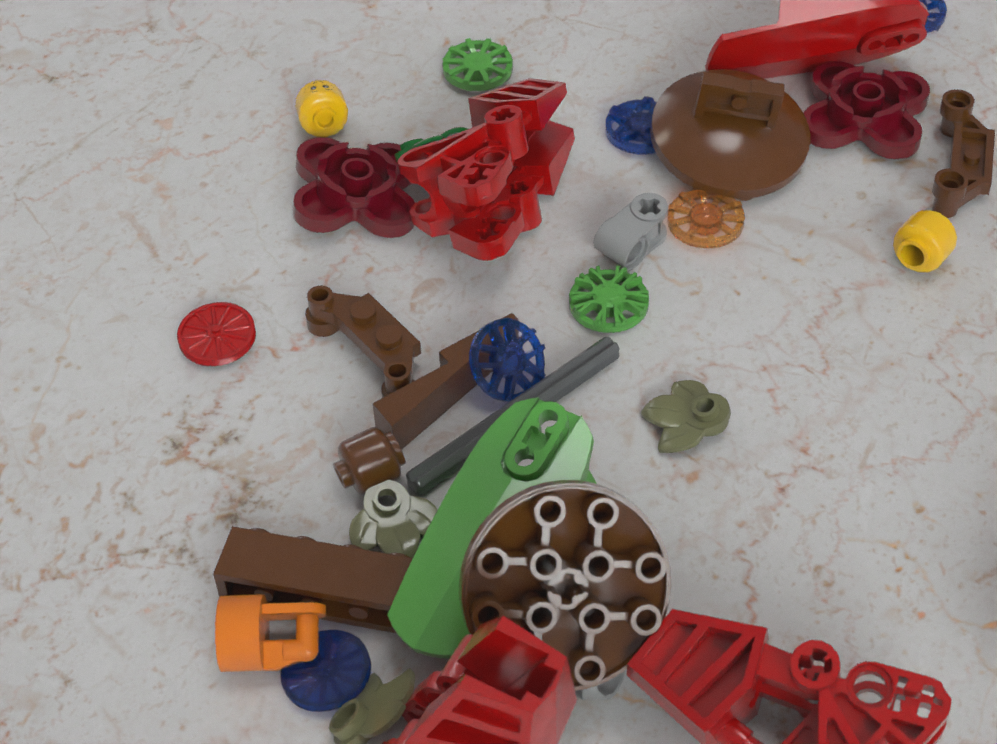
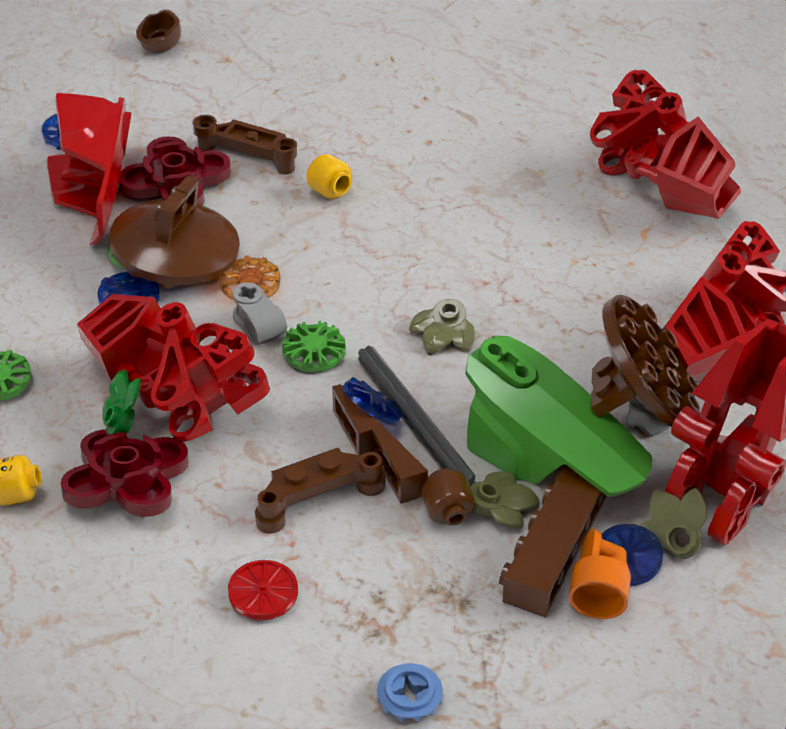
camera: 80 degrees left, 5 degrees down
(65, 481) = (421, 682): none -> medium blue gear

